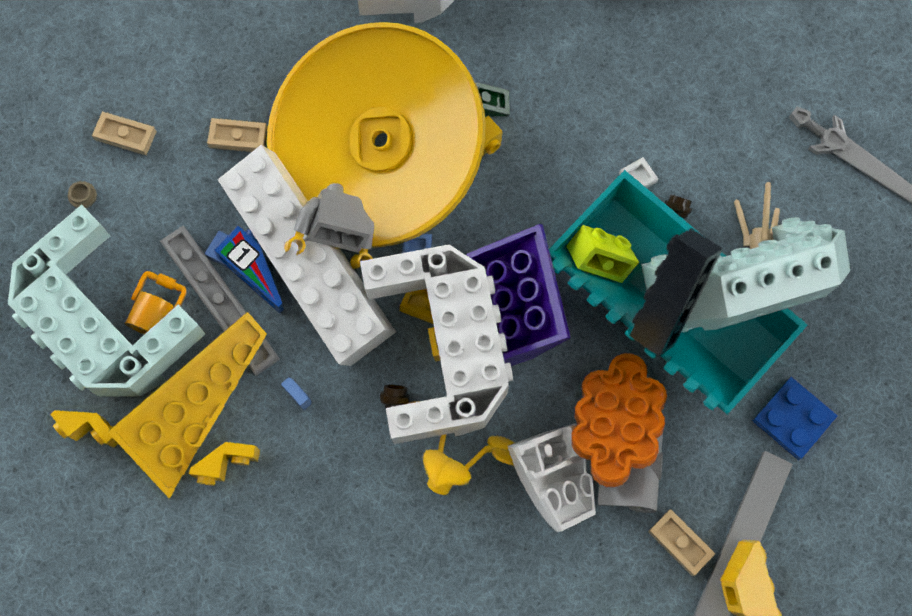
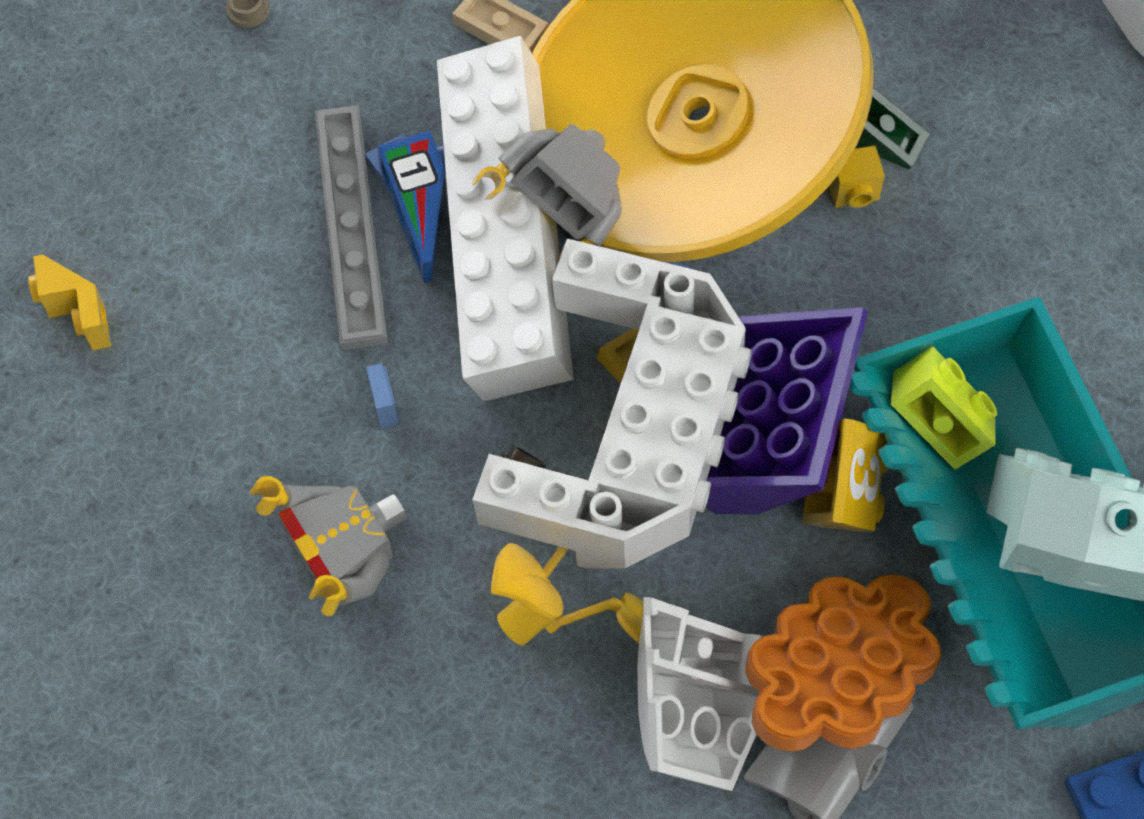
camera: 30 degrees right, 10 degrees down
(75, 327) = (132, 165): light aqua wedge -> none
(150, 308) = (247, 192): light orange piece -> none
(179, 414) = (198, 343): yellow wing -> none
(214, 465) = (214, 434): yellow slope -> none
(317, 488) = (334, 536): none -> light grey torso
(580, 322) = (852, 483): none -> yellow slope
(642, 172) = (1076, 335): white tile -> none
(674, 291) = (1018, 482): black brick -> none
(679, 205) = (1111, 405): dark brown plate -> none

